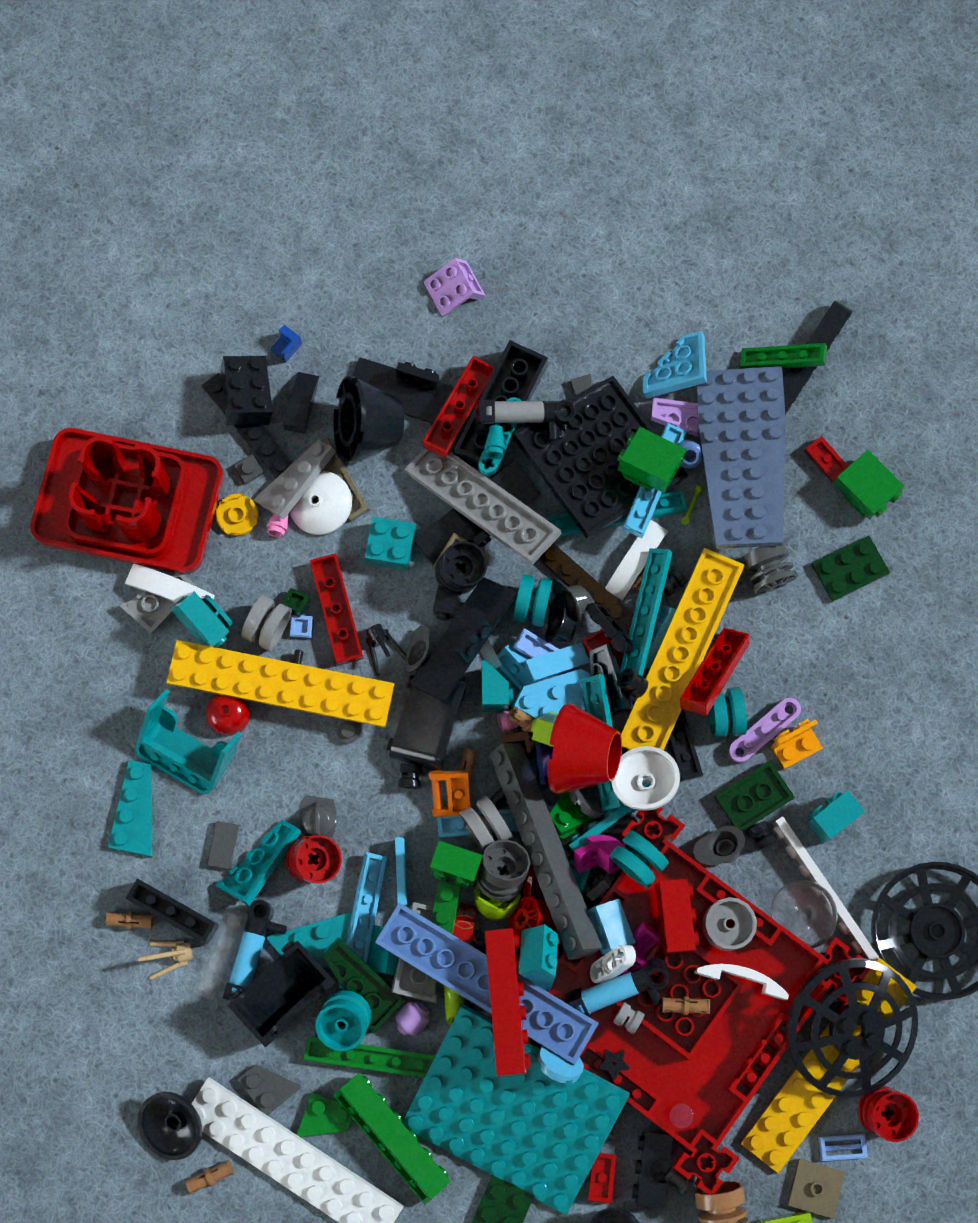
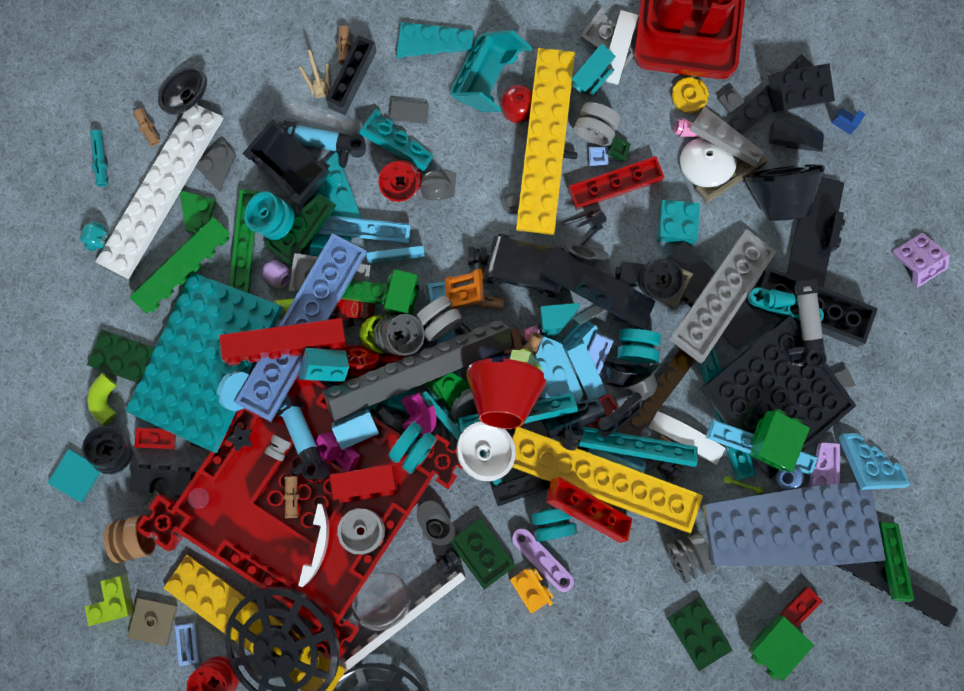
camera: 85 degrees right, 5 degrees up
(458, 408) = (806, 268): red piece -> none
(622, 957) = (321, 430): white beam -> none
(833, 818) = (469, 626): teal brick -> none

